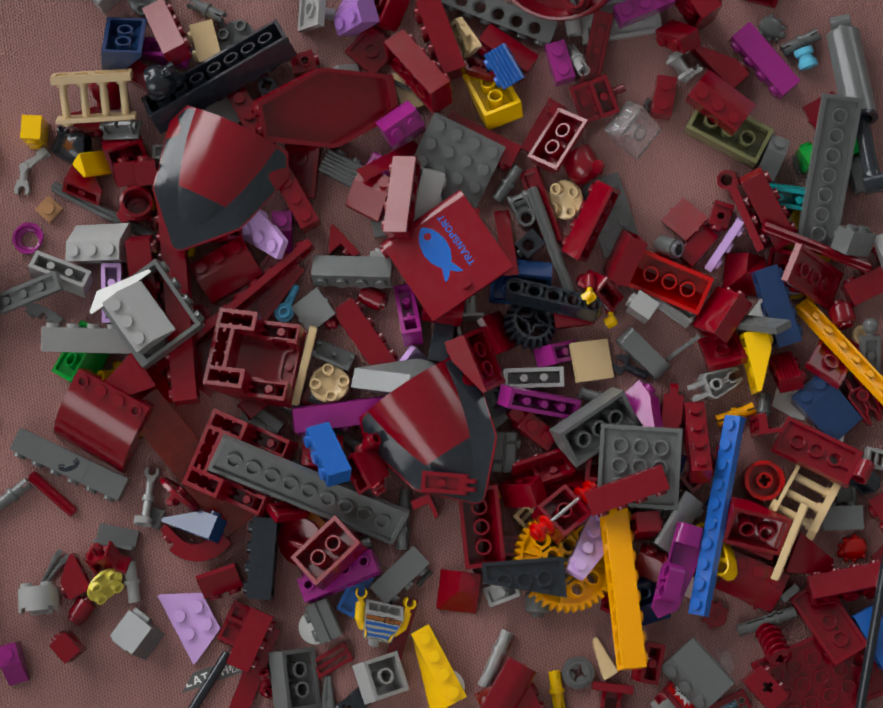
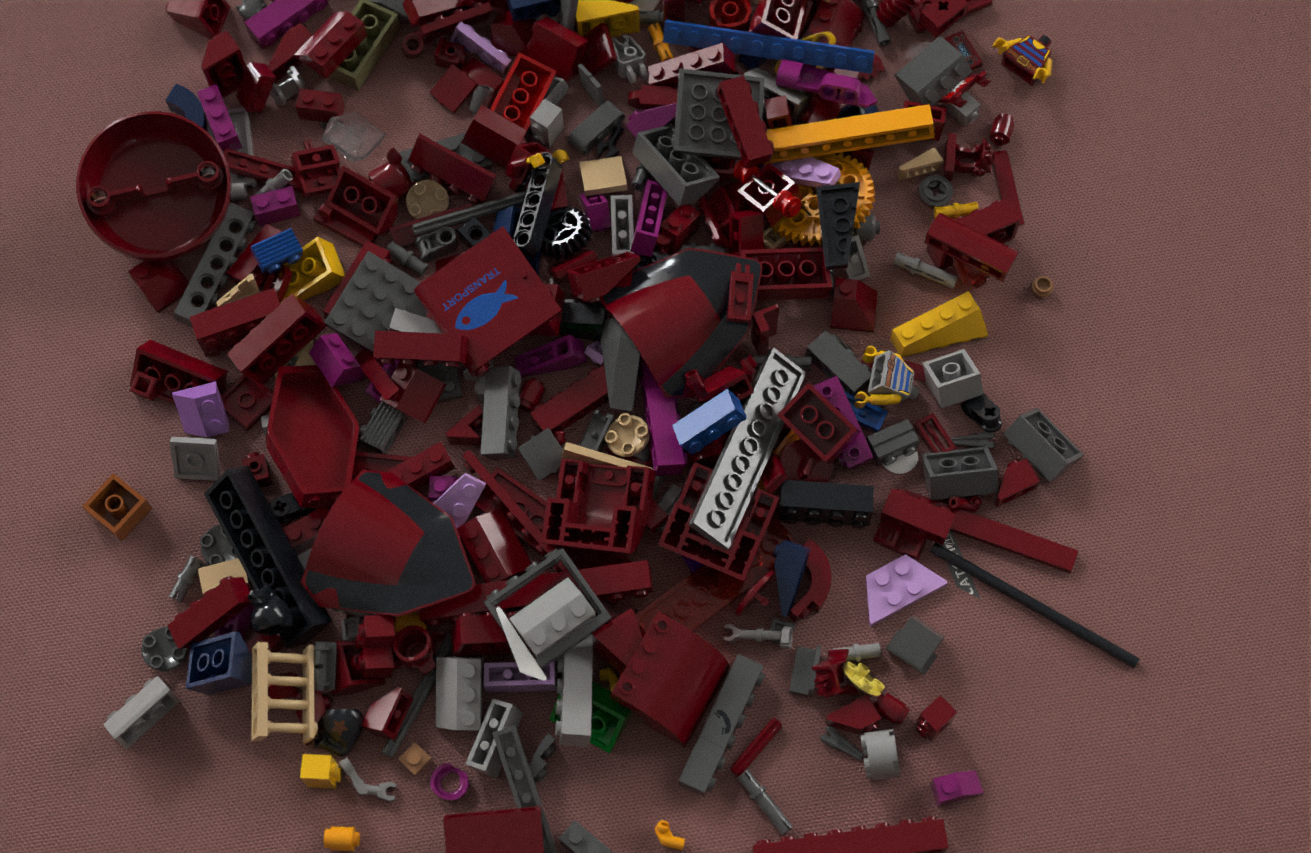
camera: 85 degrees left, 15 degrees down
(92, 164) = (364, 701): yellow slope -> none
(220, 581) = (852, 551): dark red slope -> none
(284, 311) = (543, 488): dark azure plate -> none

